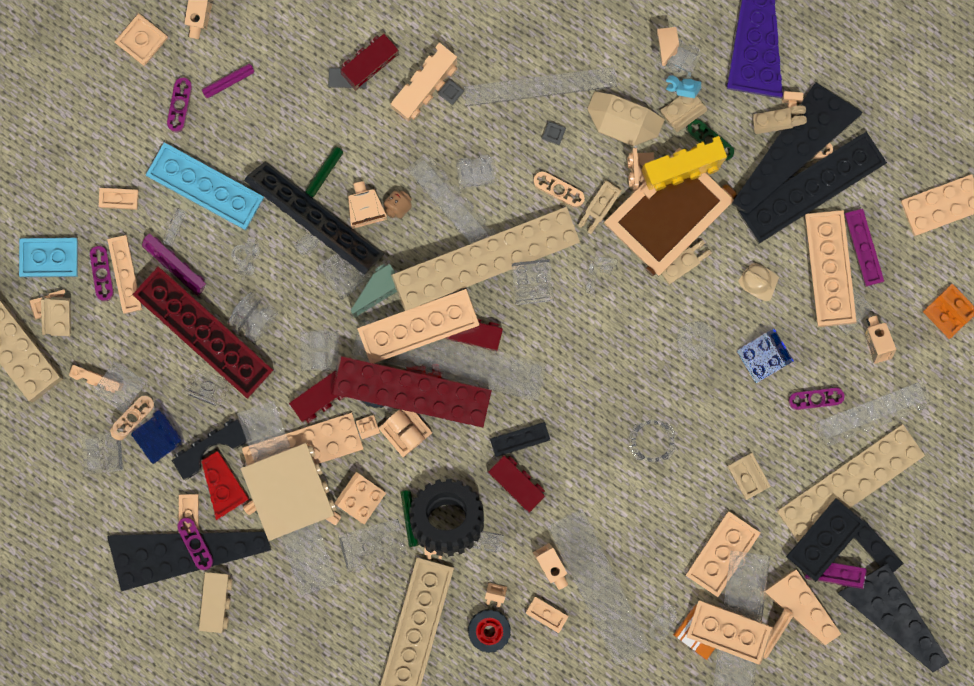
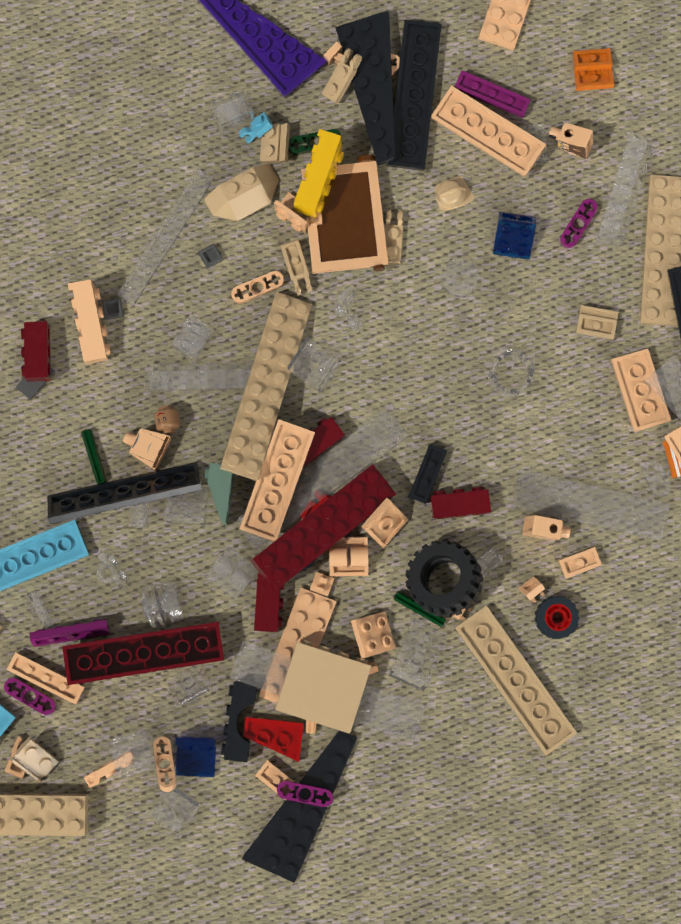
camera: 50 degrees left, 0 degrees up
(215, 602) = (363, 815): tan brick -> none
(454, 437) = (385, 522): none -> light nougat tile
(668, 43) = (215, 109): light nougat slope -> none

